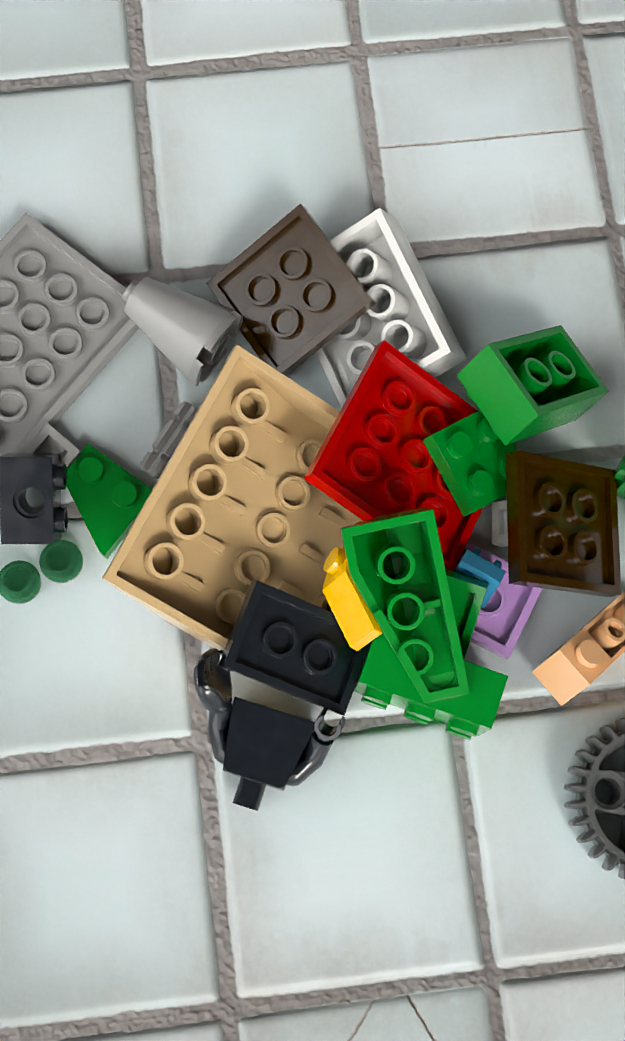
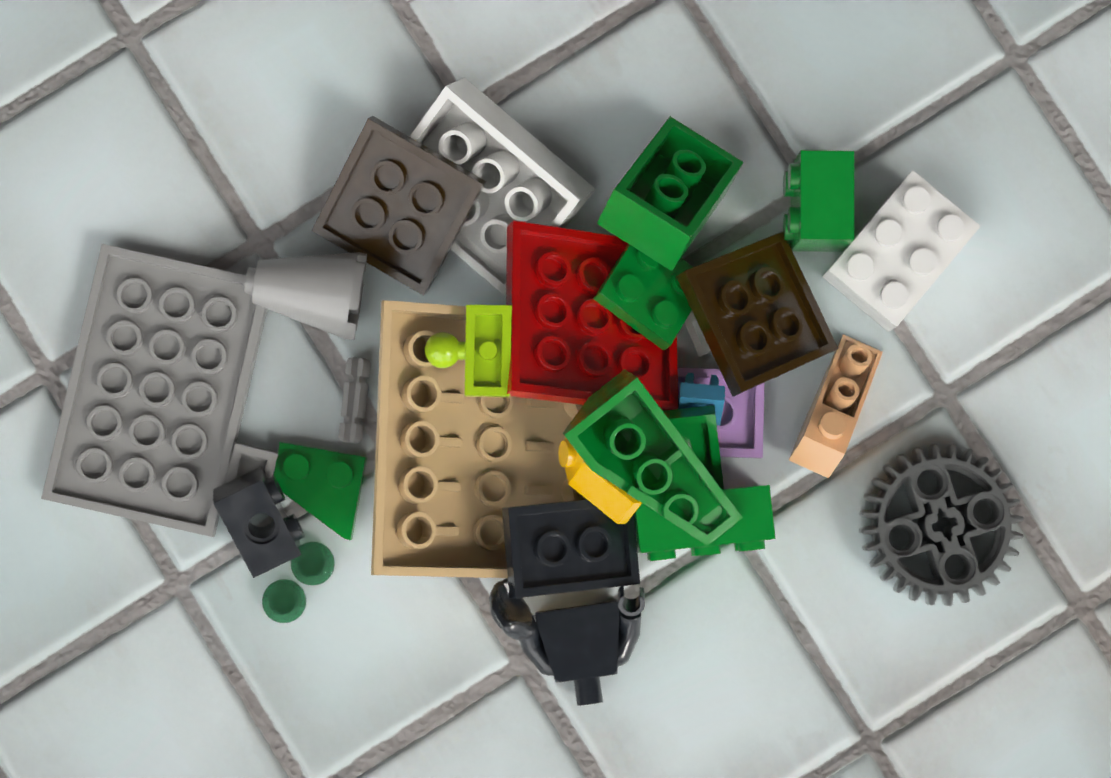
camera: 20 degrees left, 10 degrees up
(303, 432) = (485, 350): none -> lime plate

